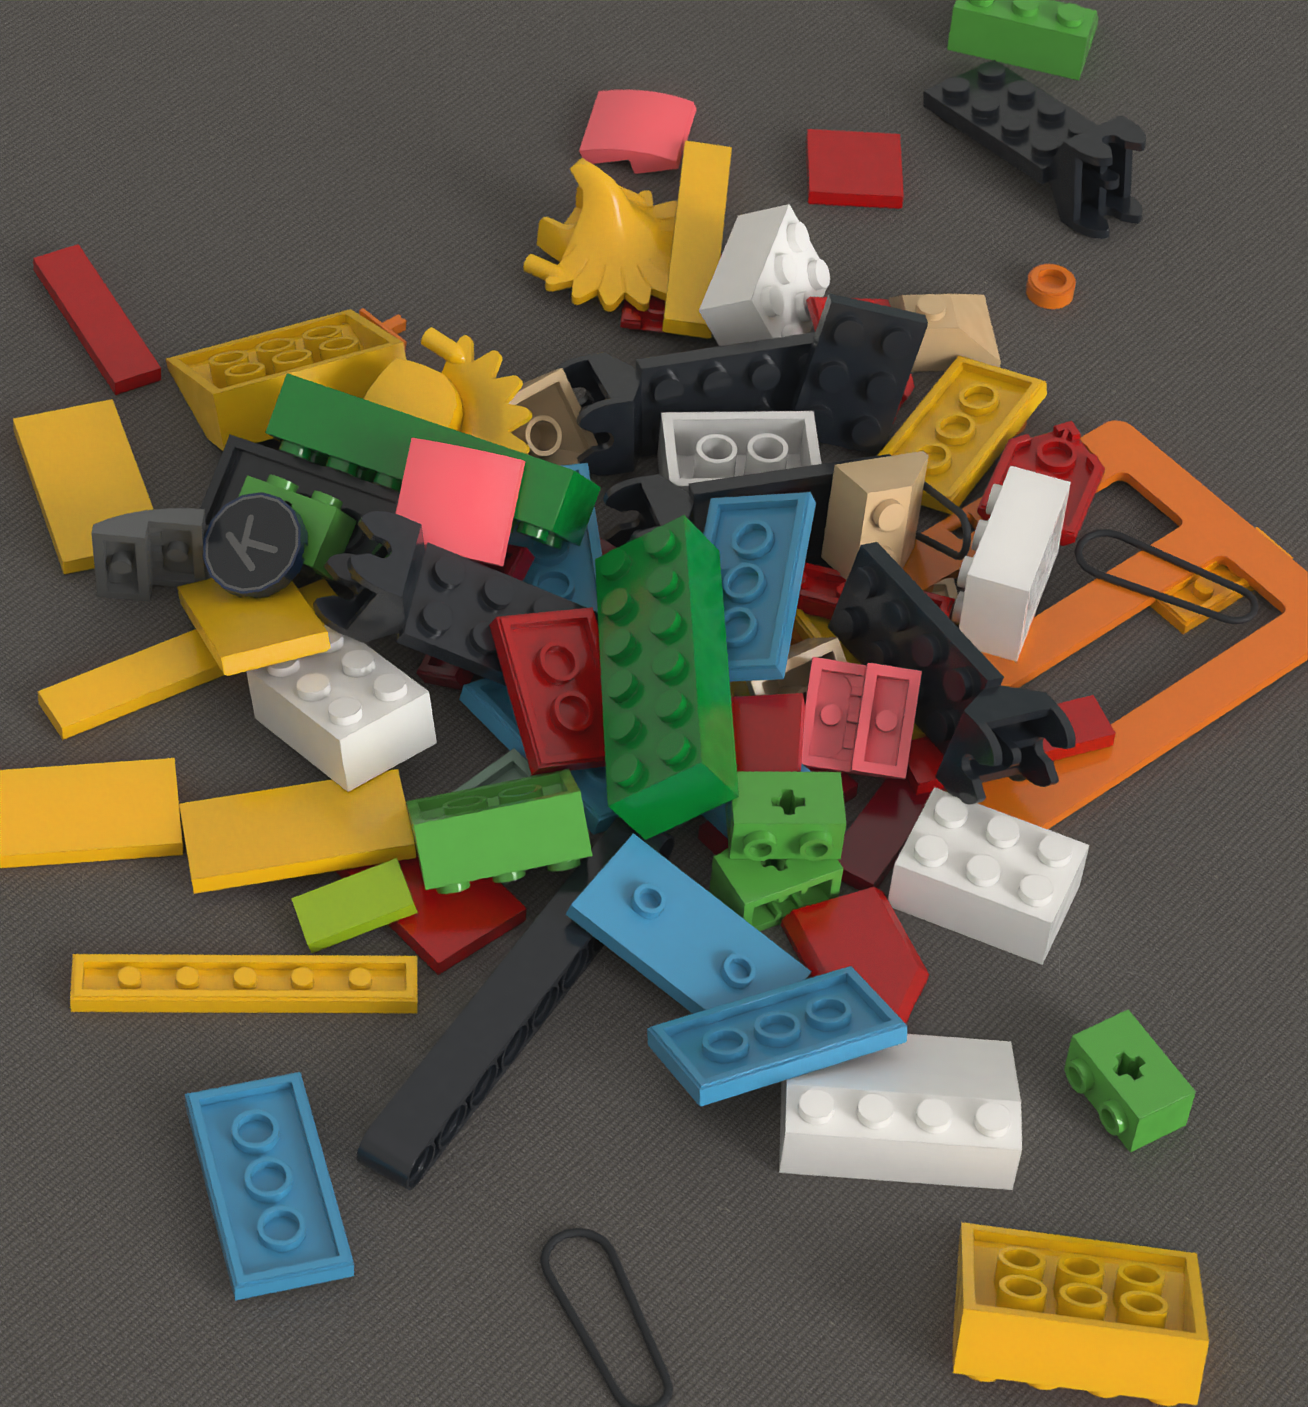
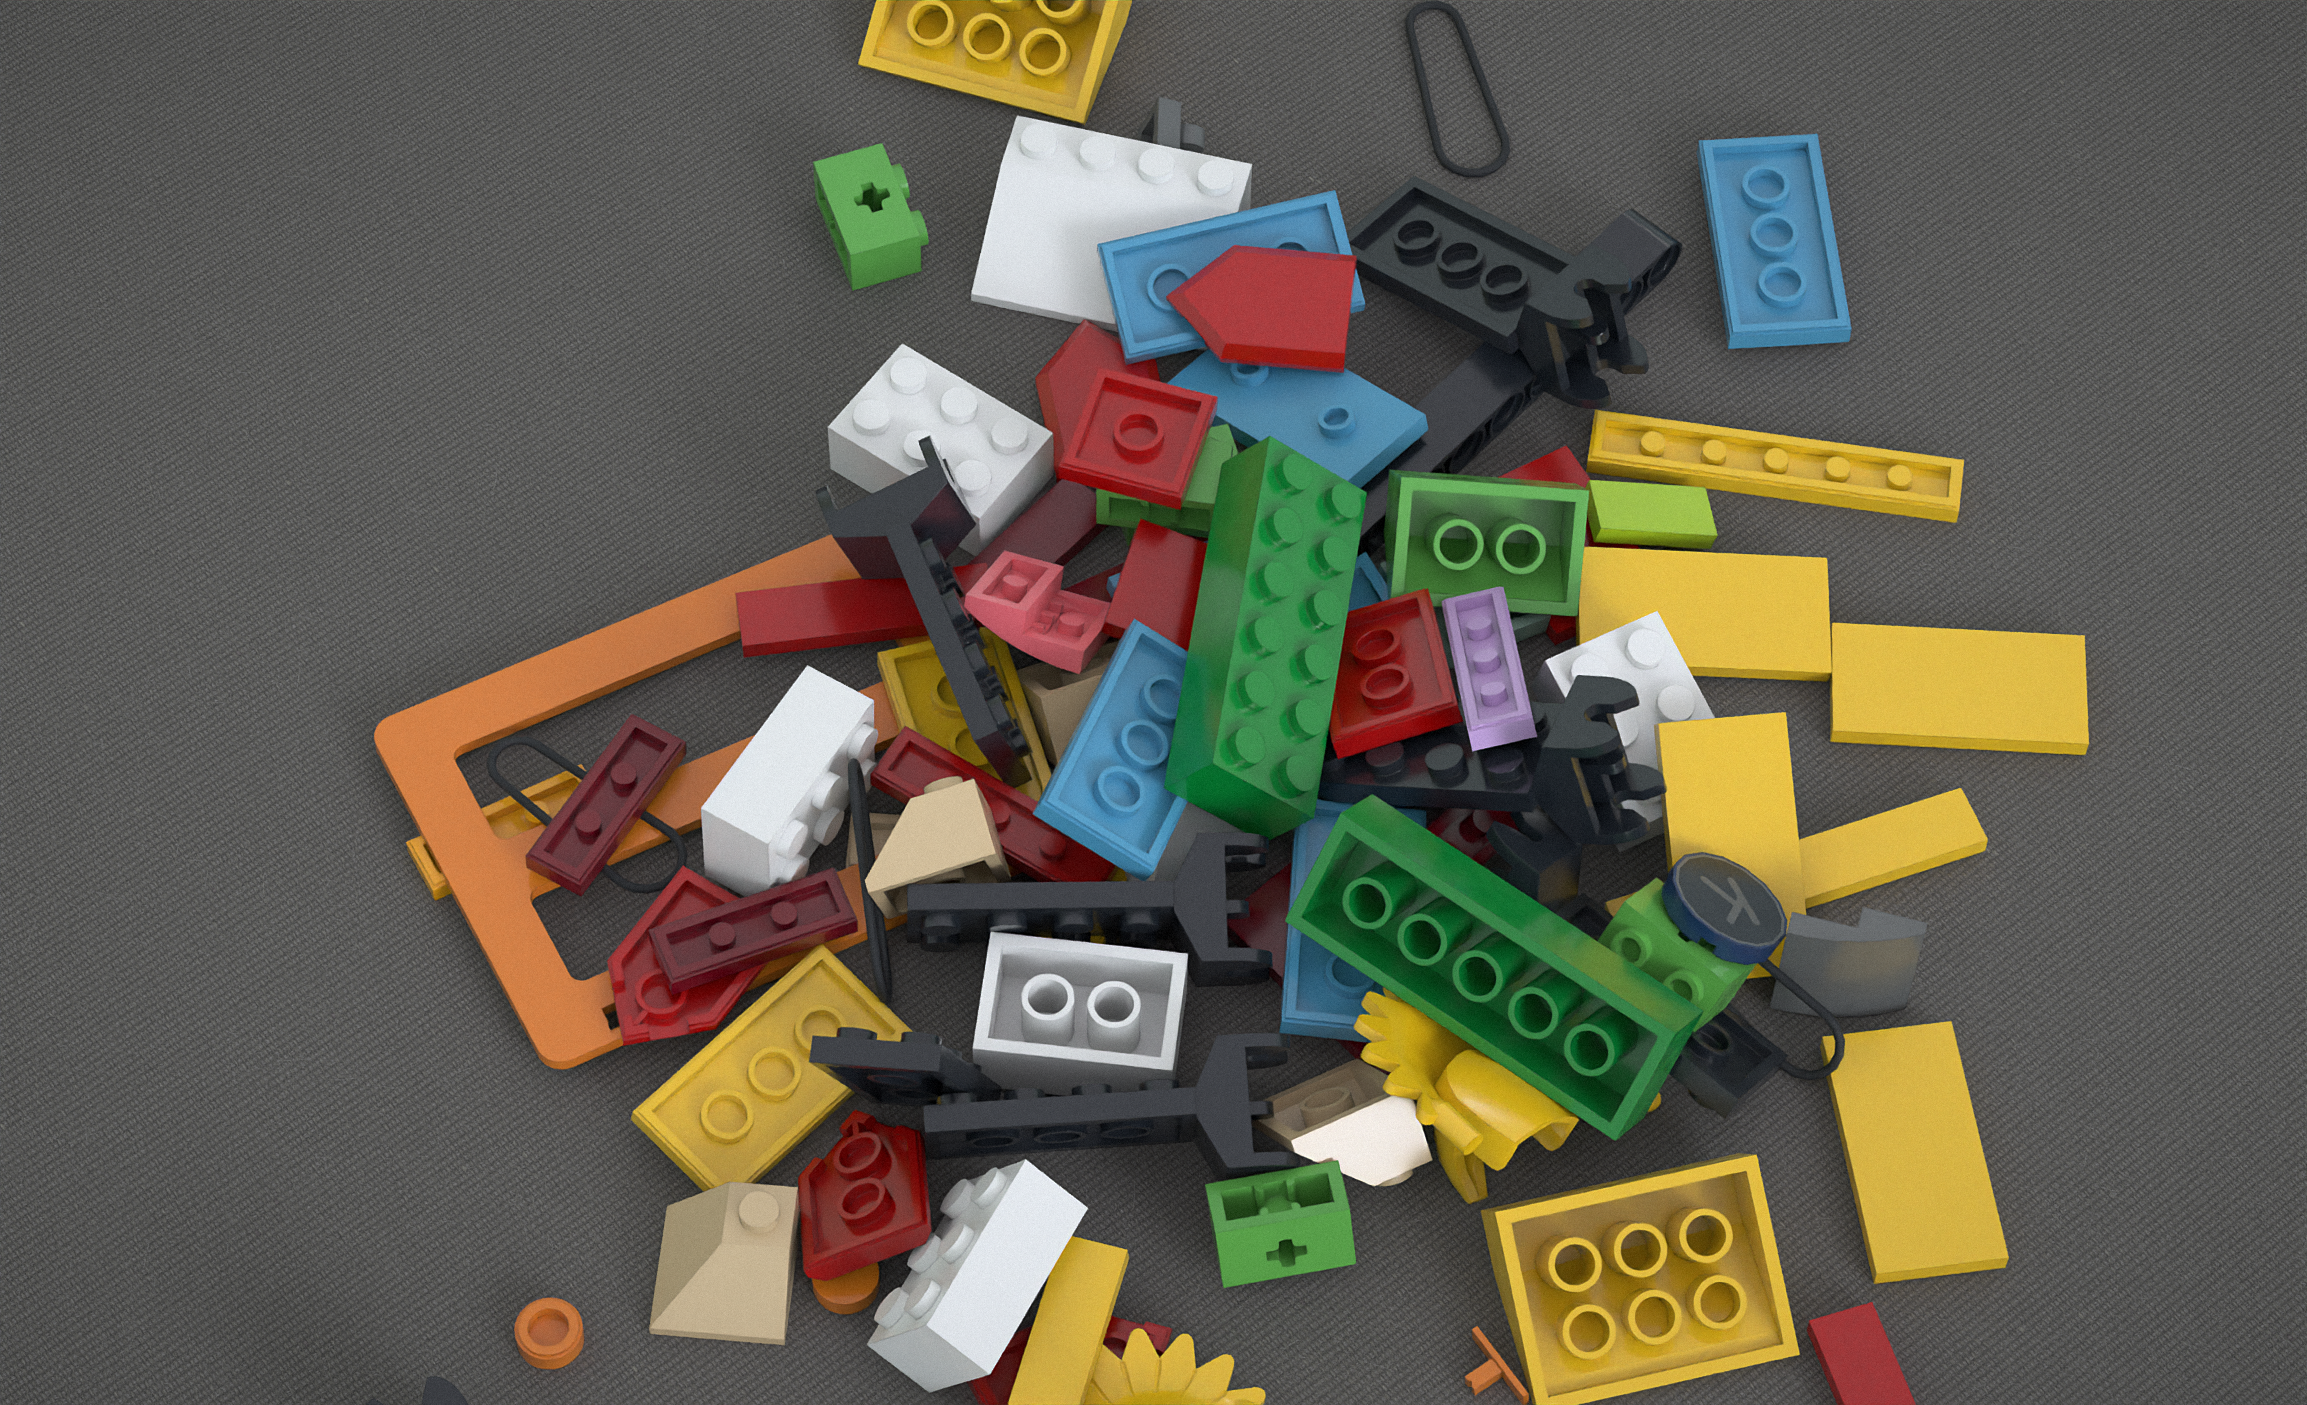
camera: 165 degrees left, 10 degrees up
(461, 498) = (1486, 828): coral slope -> none
(475, 675) = (1488, 668): none -> lavender tile
(531, 1054) = (1504, 287): none -> black hinge
(543, 349) = (1281, 1224): none -> bright green brick
(731, 994) = (1272, 307): none -> red tile
(816, 805) = (1138, 437): none -> red tile
(873, 1193) = (1164, 128): none -> dark grey tile
(973, 492) = (753, 930): none -> dark red tile
(1150, 571) = (606, 805): none -> dark red tile

